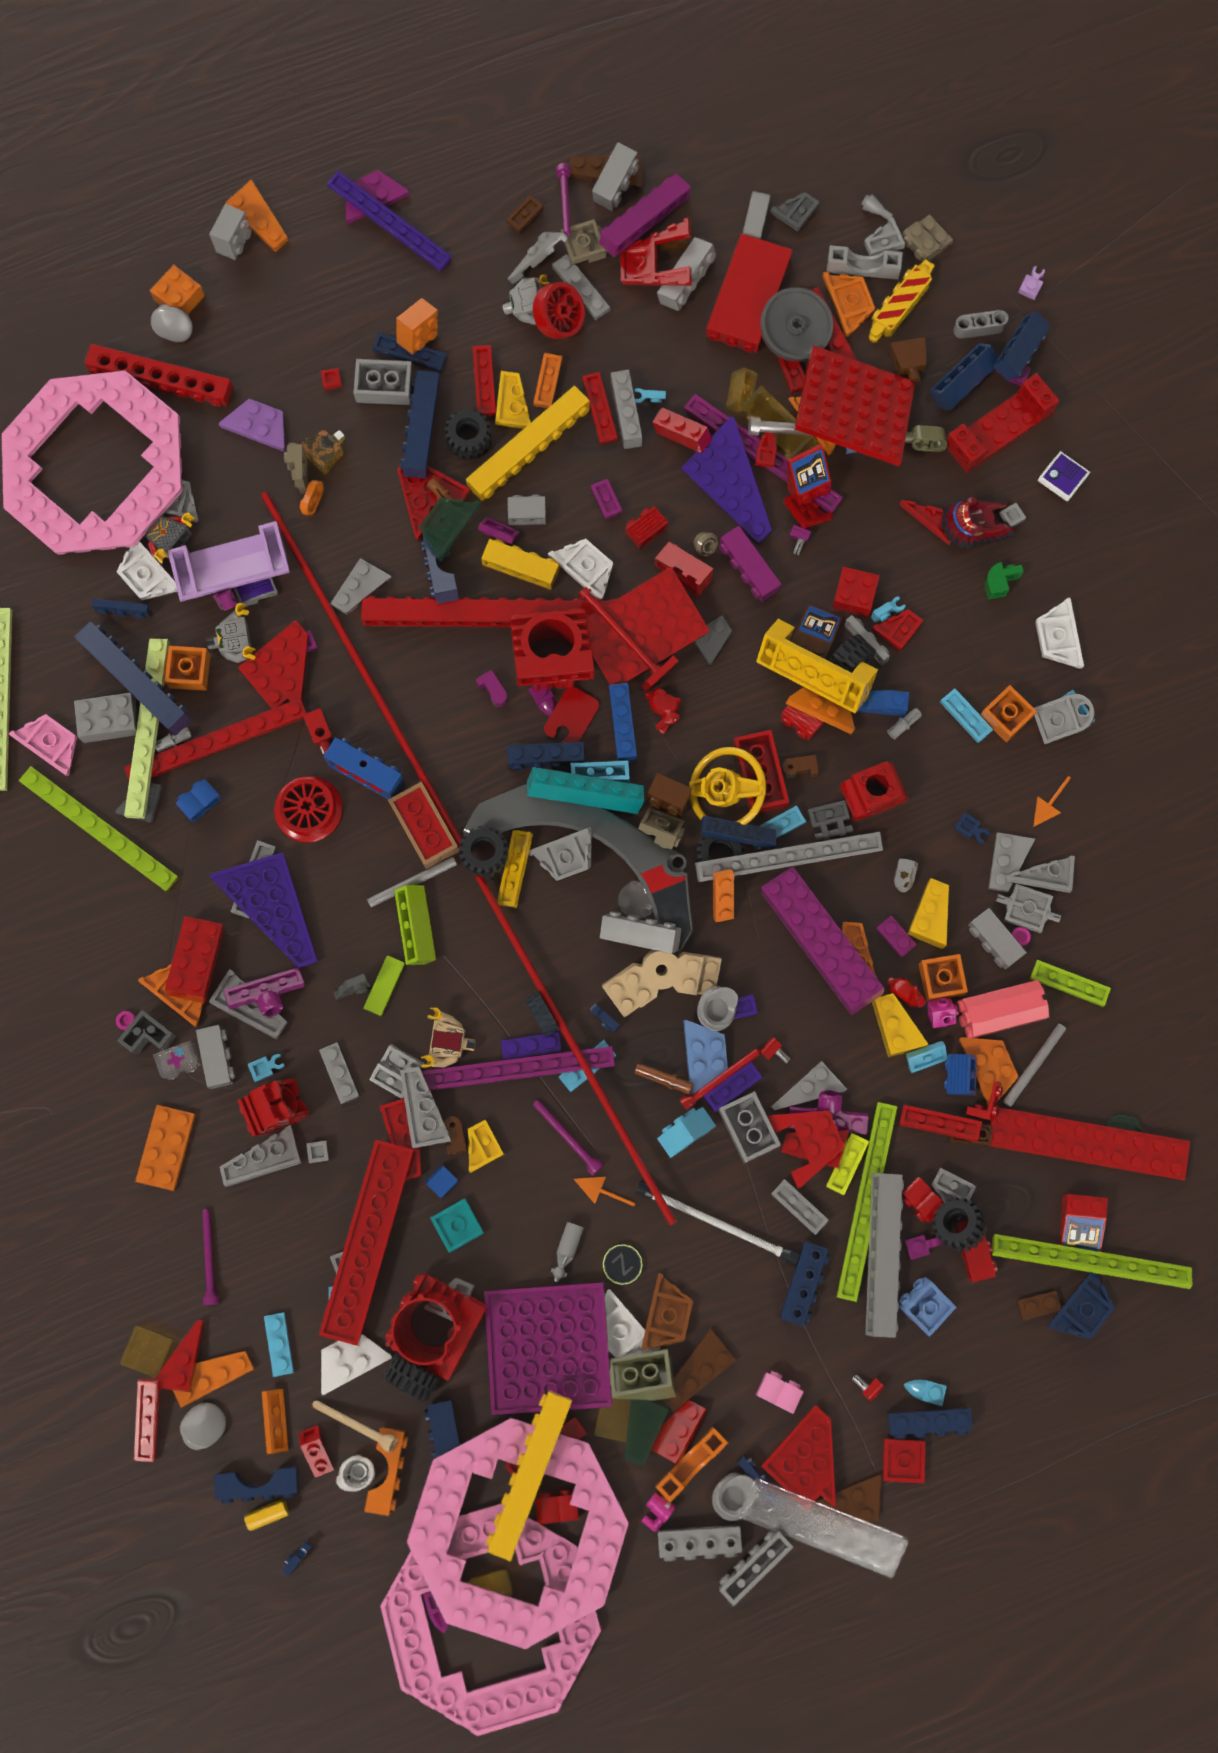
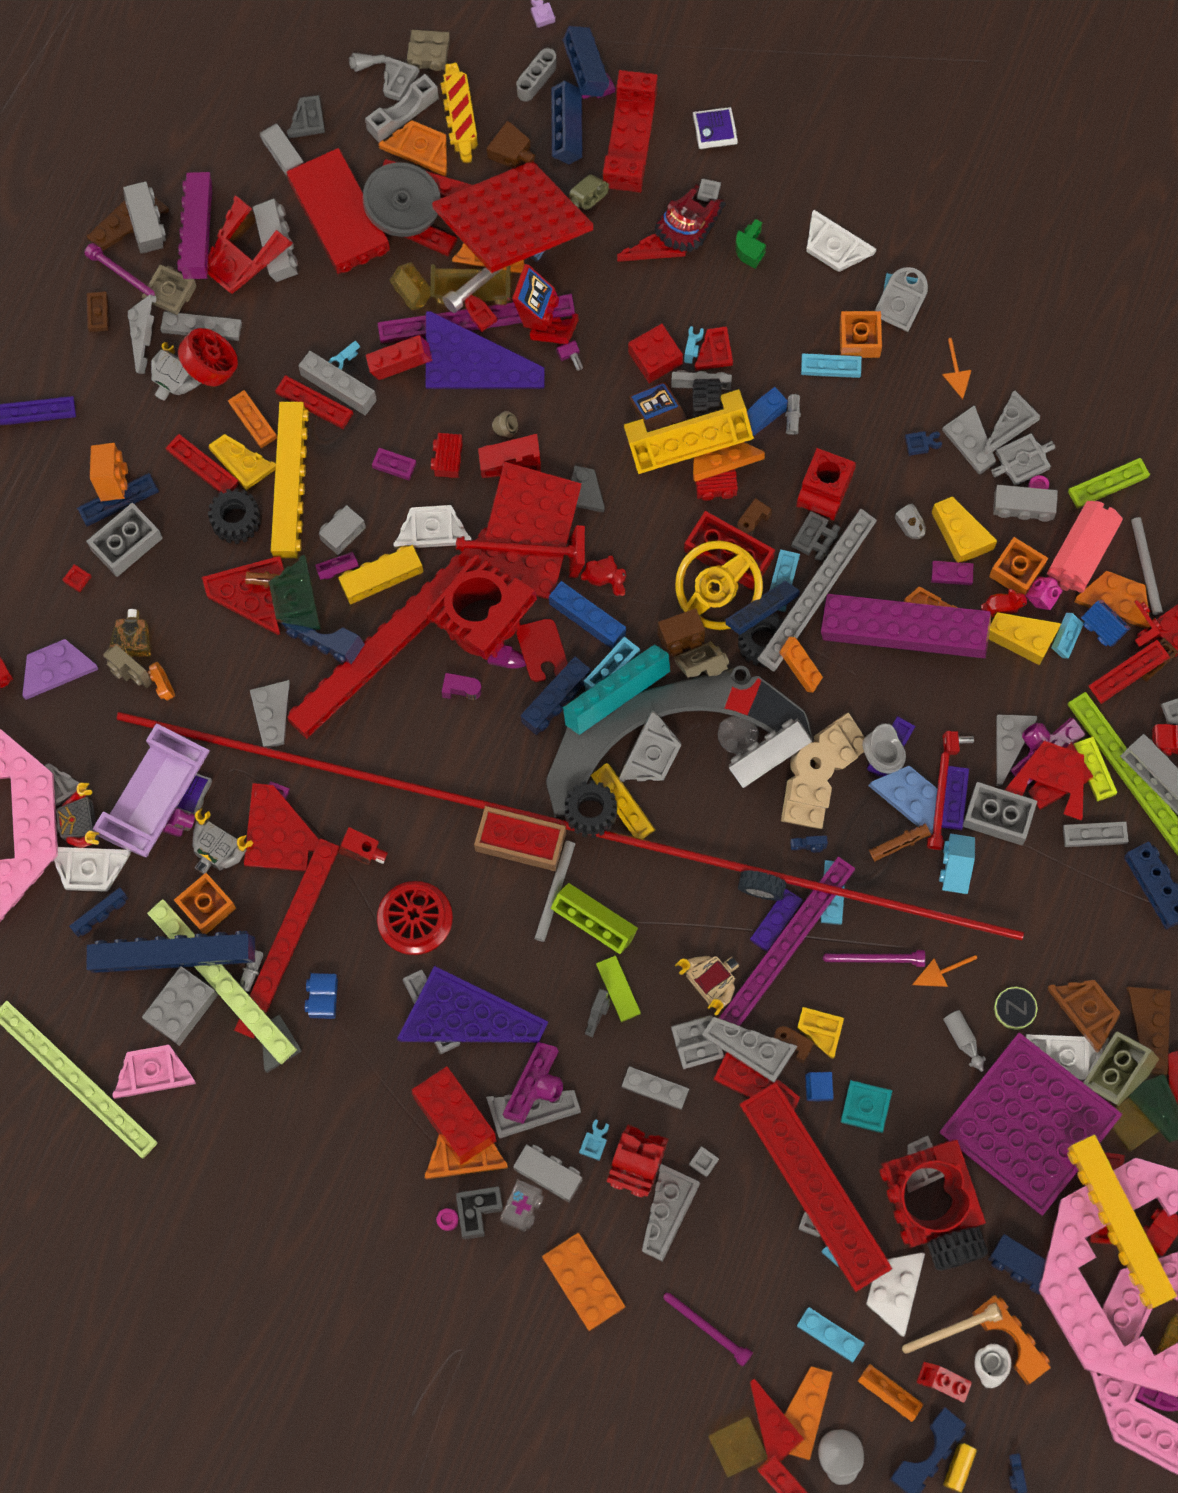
camera: 45 degrees left, 5 degrees down
(99, 829) = (264, 1098): lime plate -> none
(364, 769) = (429, 841): blue brick -> none
(421, 424) = (190, 543): dark blue brick -> none
(750, 564) = (555, 407): magenta brick -> none
(788, 1255) = (1124, 877): white hose -> none

